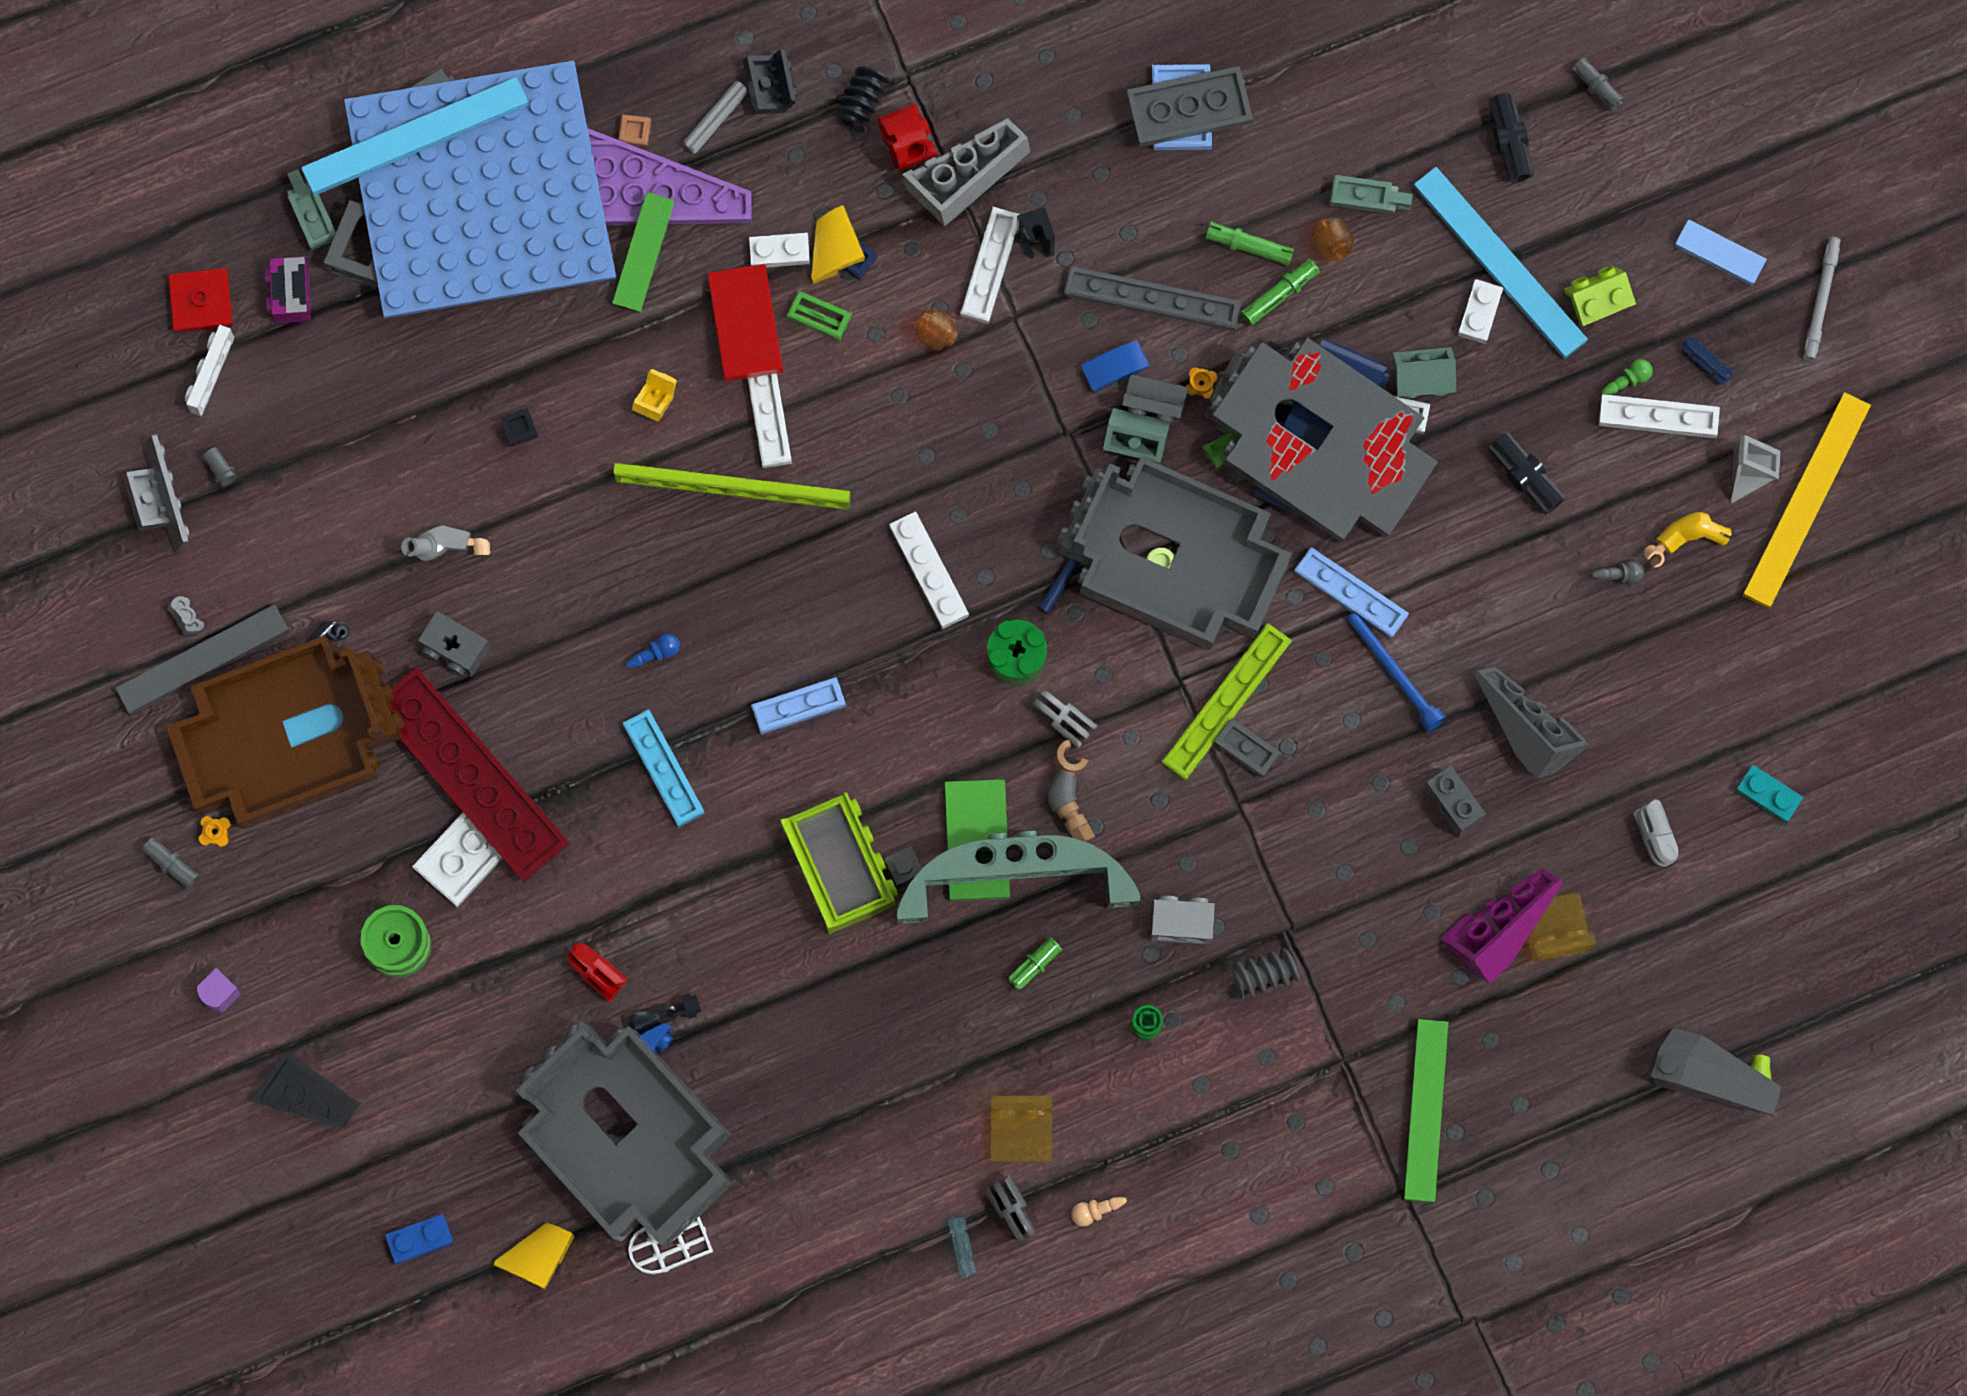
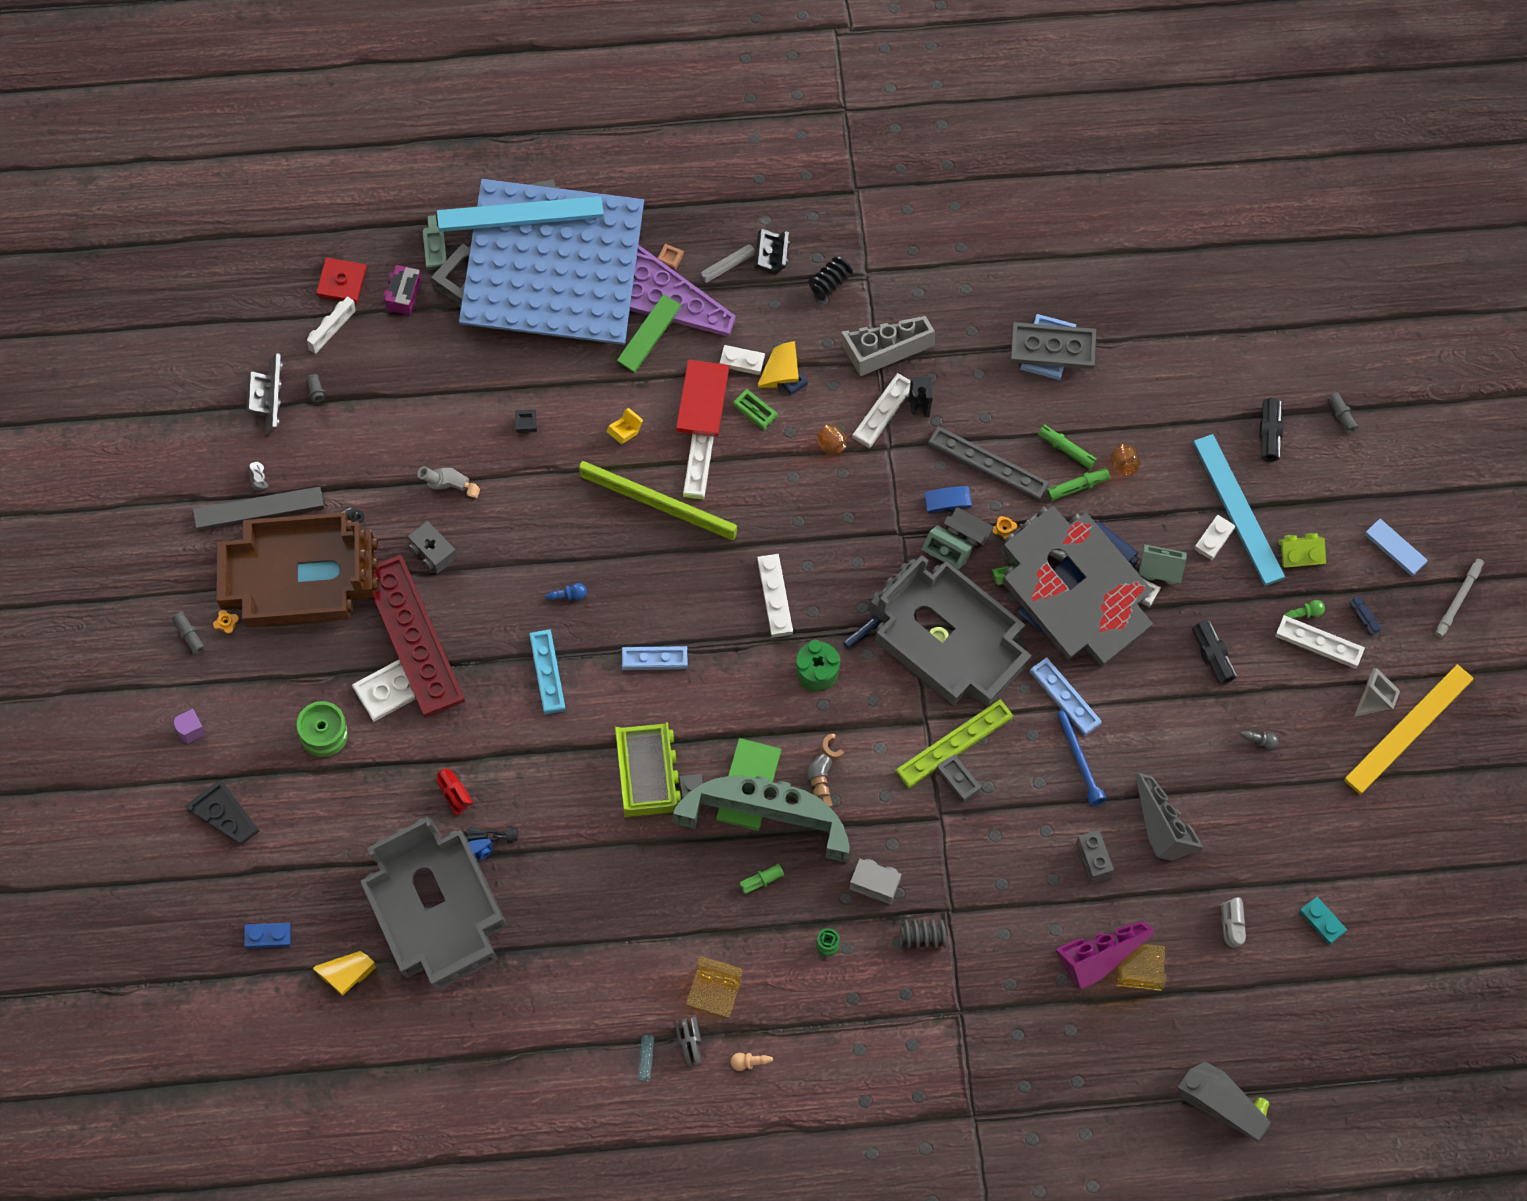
camera: 15 degrees right, 10 degrees down
(660, 1256) = (431, 999): white window -> none
(906, 137) = (852, 309): red brick -> none
(1064, 717) = (836, 719): light grey arm -> none
(1368, 195) = (1160, 439): sand green hinge -> none
(1426, 1111) = (1008, 1065): bright green tile -> none
(1686, 529) = (1316, 722): yellow arm -> none

